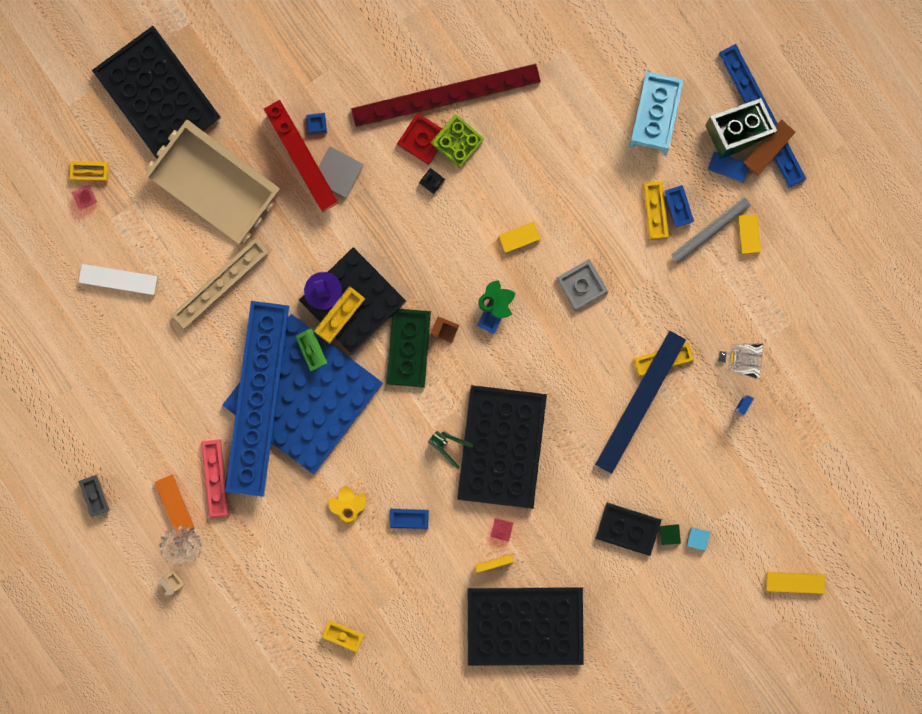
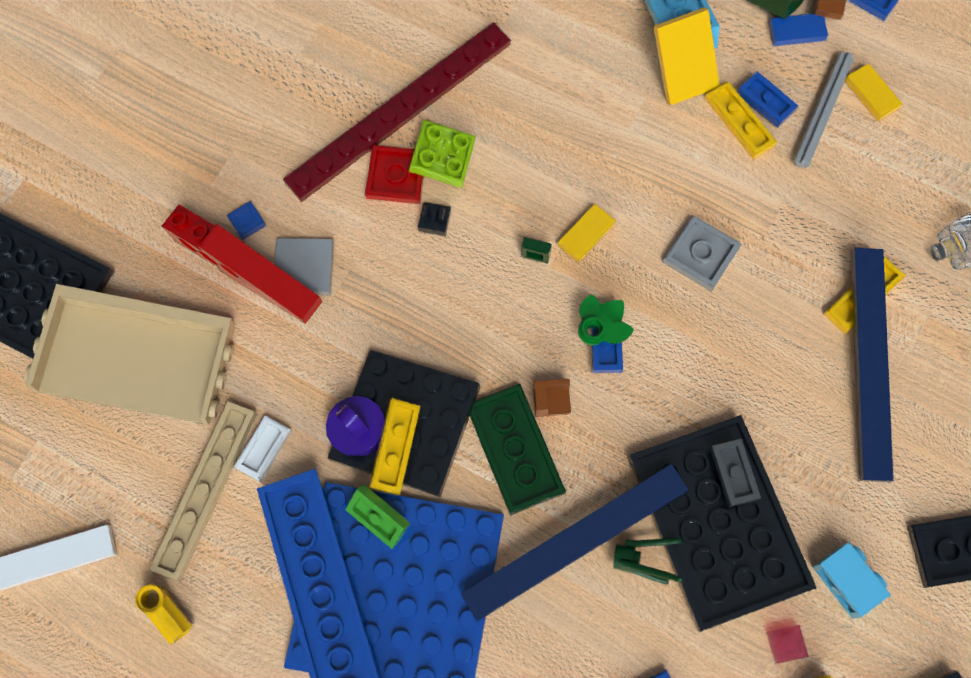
camera: 25 degrees left, 15 degrees down
(169, 345) = (165, 615): none -> yellow piece
(263, 274) = (262, 448): none -> white tile
(414, 418) = (574, 542): none -> dark blue tile
(484, 236) = (536, 250): none -> dark green tile
(522, 425) = (735, 472): none -> dark grey plate
(555, 514) = (852, 580): none -> medium azure brick
(639, 157) = (687, 56): none -> yellow tile

